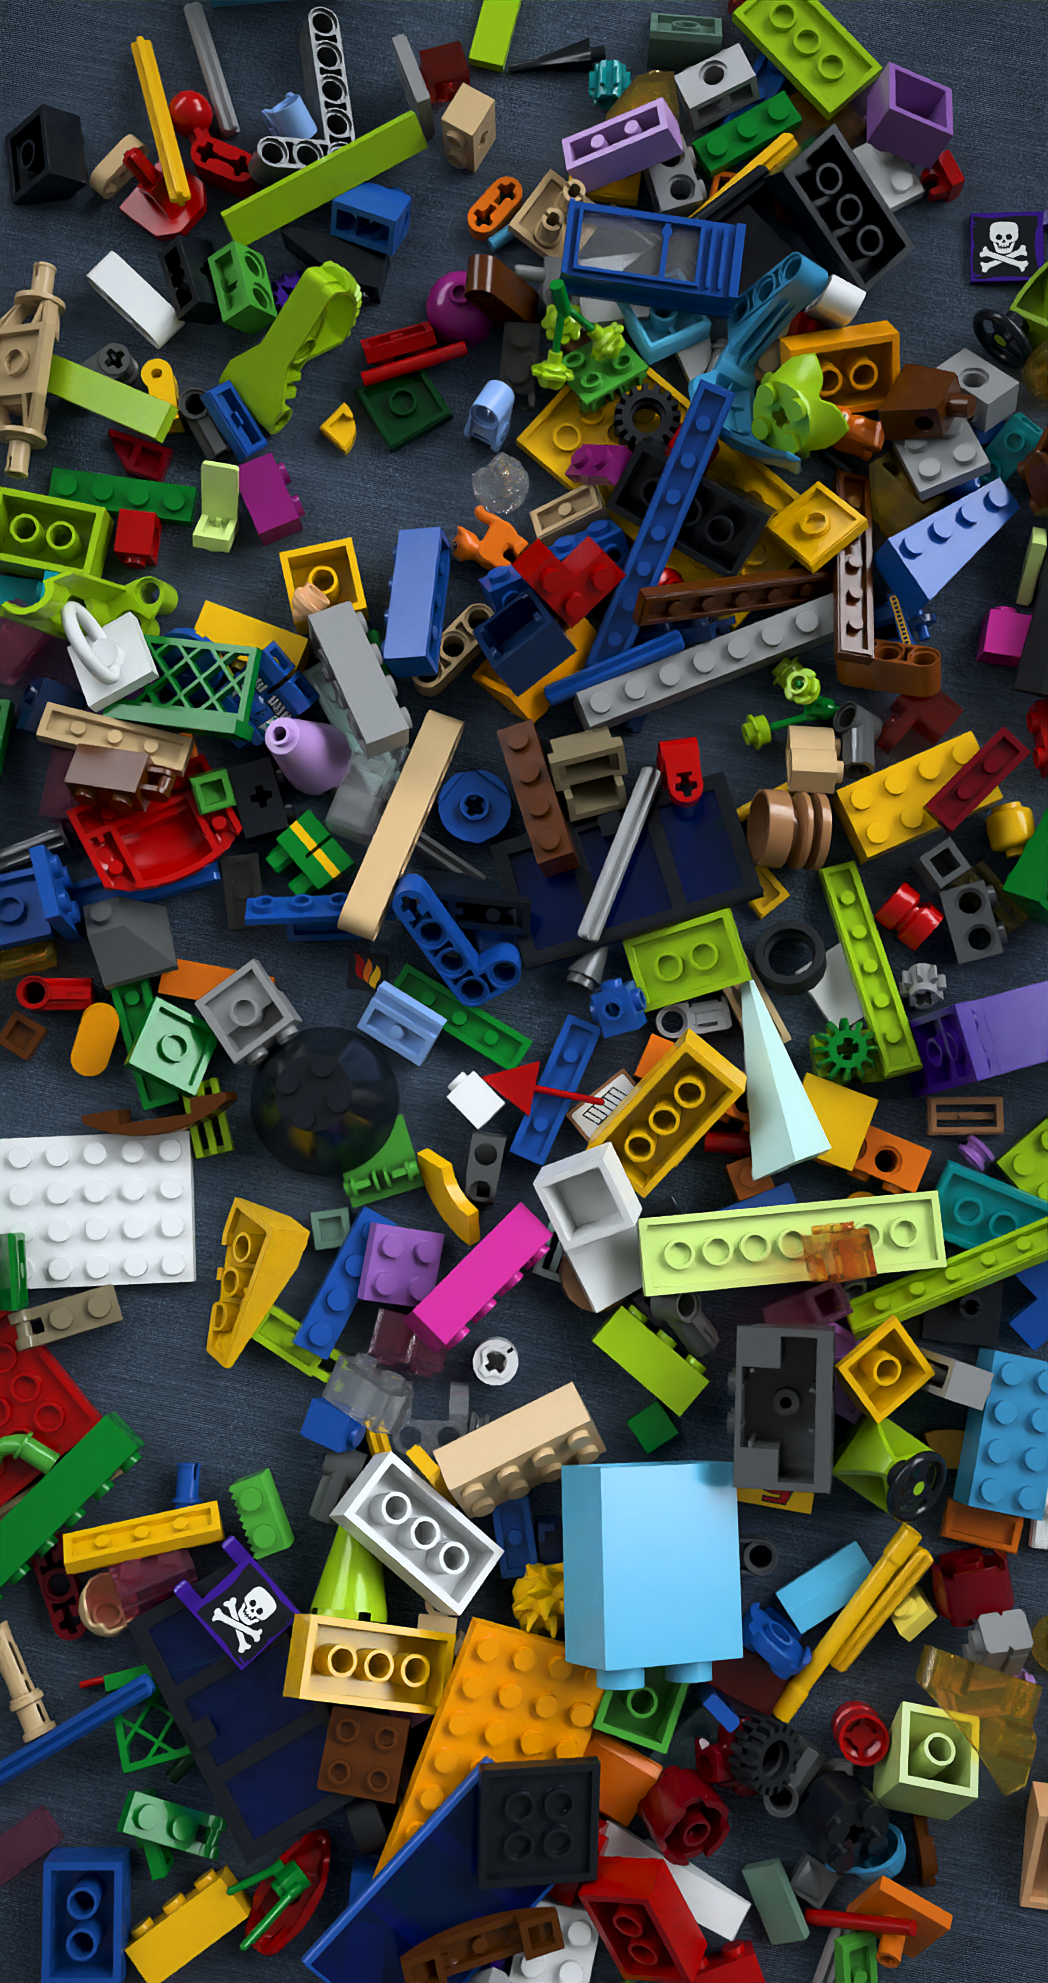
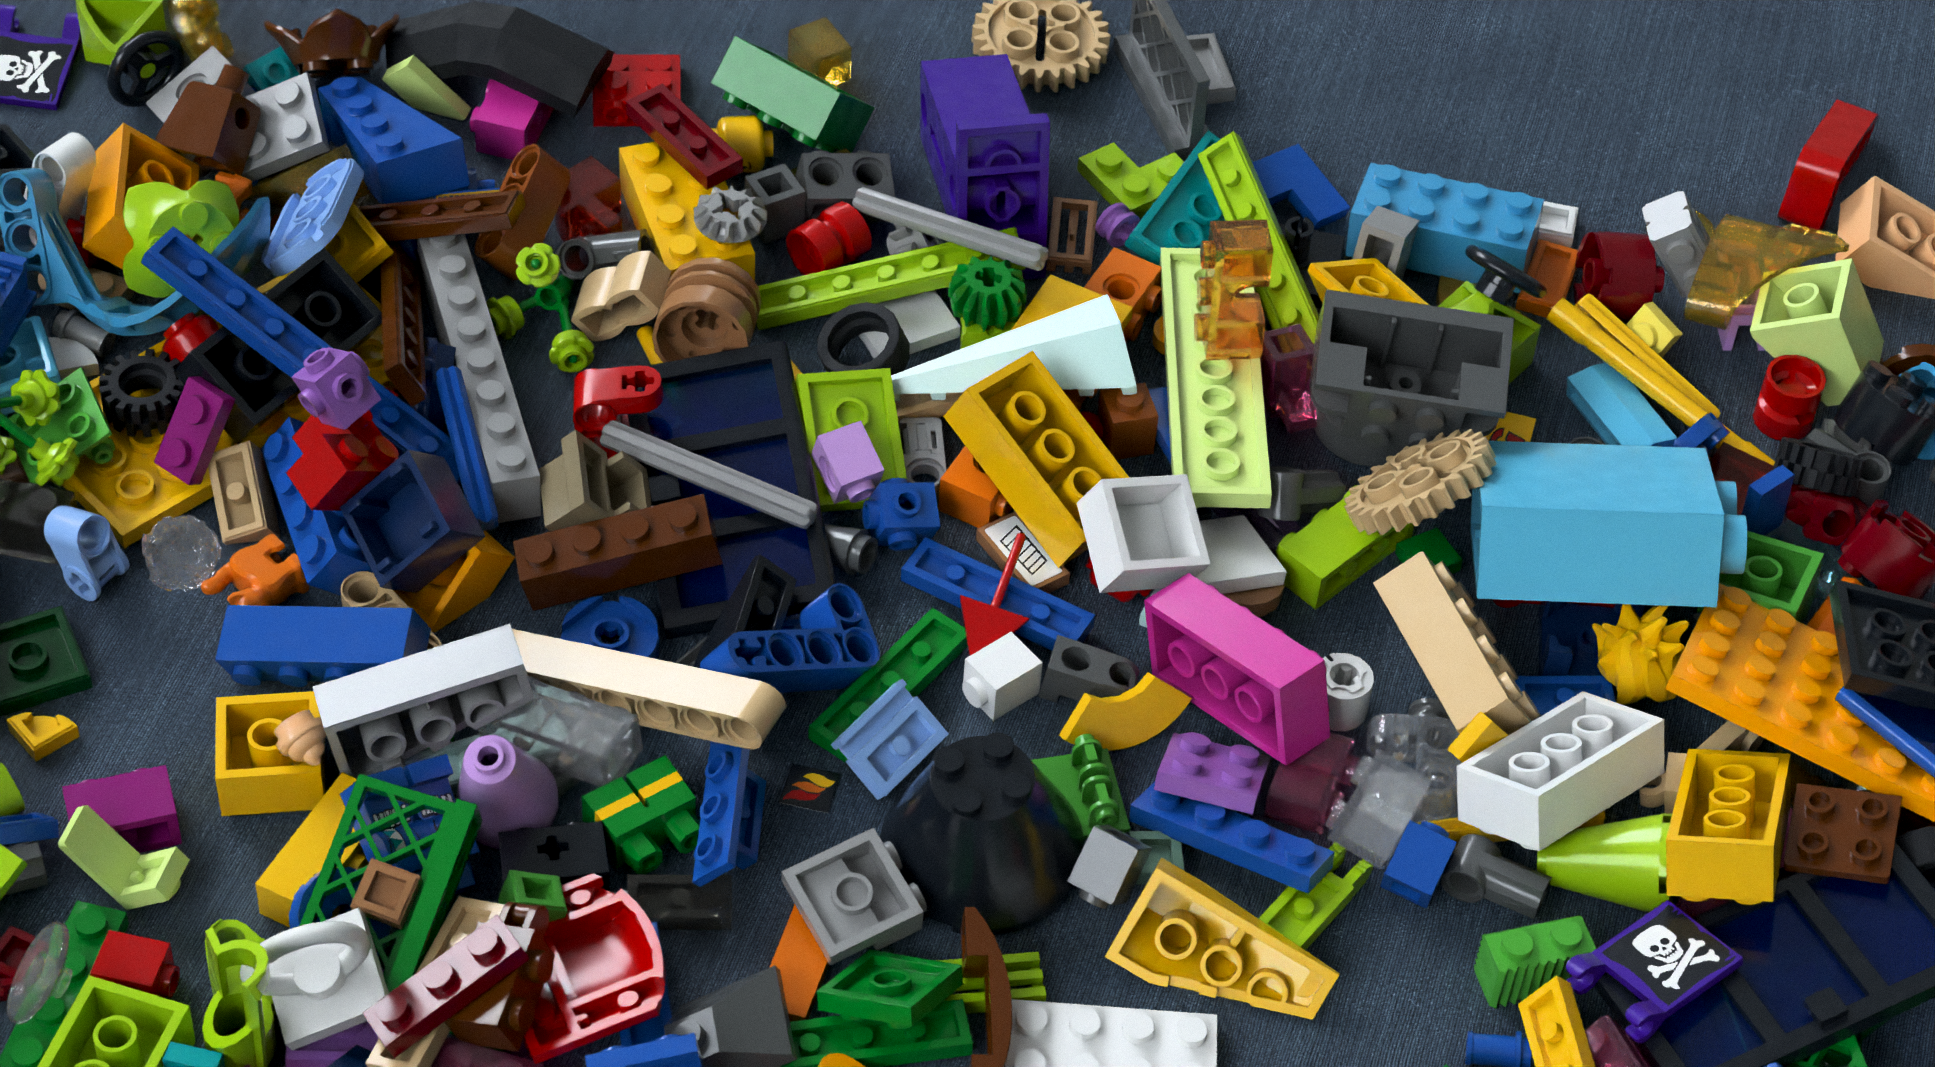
camera: 90 degrees left, 35 degrees down
(93, 742) = (445, 986): none -> plate
(111, 477) = (40, 973): none -> clear dish
(174, 687) = (386, 893): none -> medium nougat tile
(303, 1195) = (1108, 866): none -> brick
(592, 553) = (335, 387): none -> medium lavender brick
(641, 1404) = (1420, 482): none -> tan gear
(648, 959) = (848, 463): none -> lavender brick
(824, 502) = (314, 218): none -> light blue tile
(894, 848) = (726, 227): none -> light grey gear
(907, 1012) = (950, 228): none -> light grey axle

